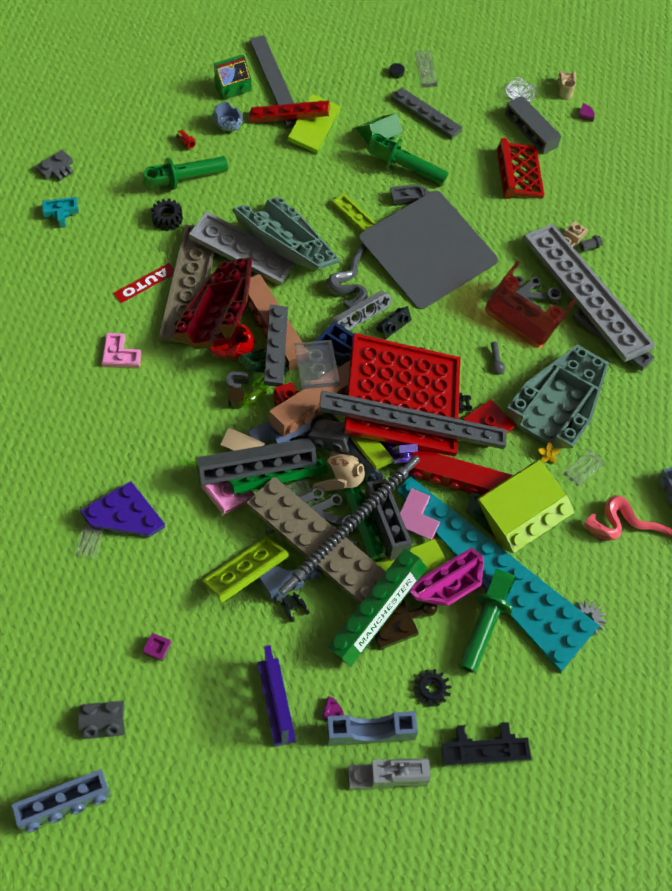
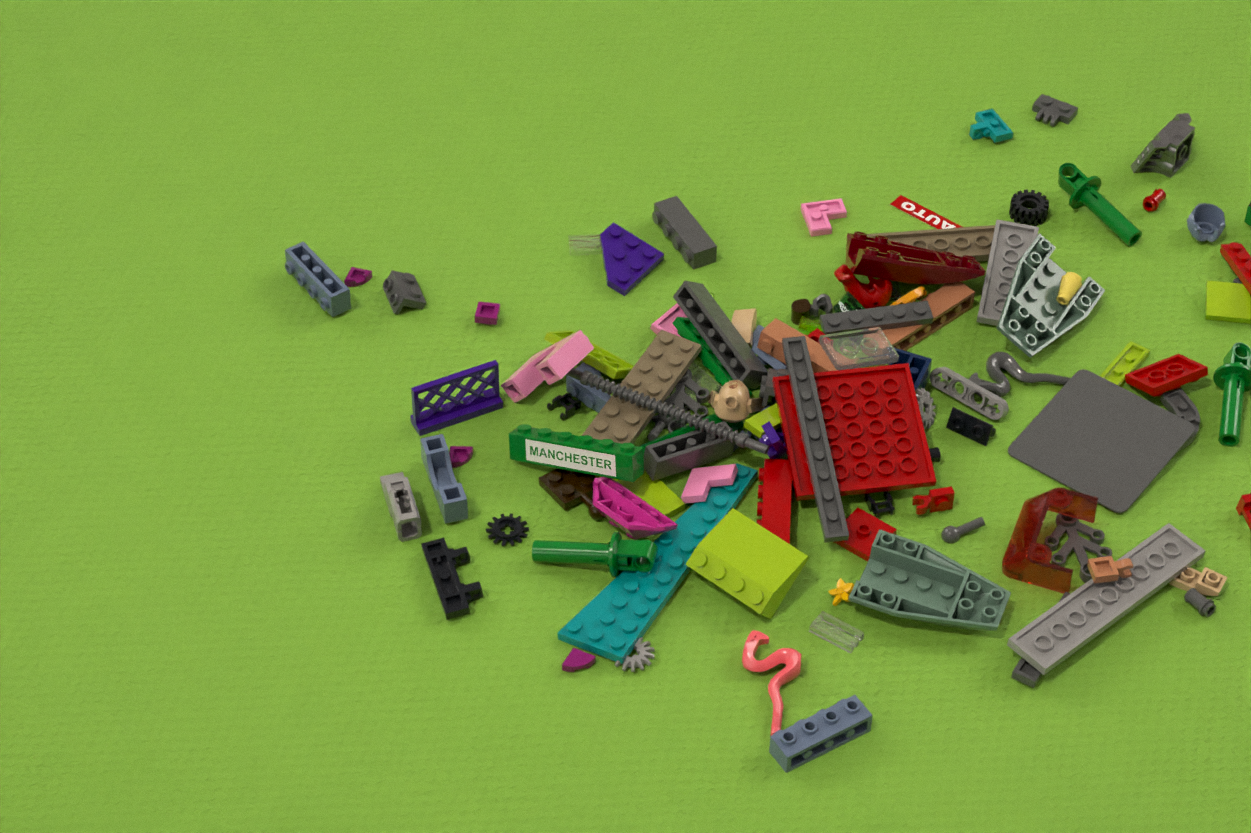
camera: 80 degrees right, 15 degrees down
(60, 761) = (357, 277): none -> magenta tile
(107, 458) = (684, 232): none -> dark grey brick
(137, 110) = (1168, 149): none -> flat silver slope
(251, 613) = (547, 365): none -> bright pink arch
(255, 319) = (911, 297): none -> light orange tile
(276, 215) = (1068, 287): none -> light yellow cone
(377, 190) = (1166, 375): none -> red plate
(469, 363) = (937, 500): none -> red plate
(572, 281) = (1106, 569): none -> nougat plate
(591, 662) = (578, 660): none -> magenta tile

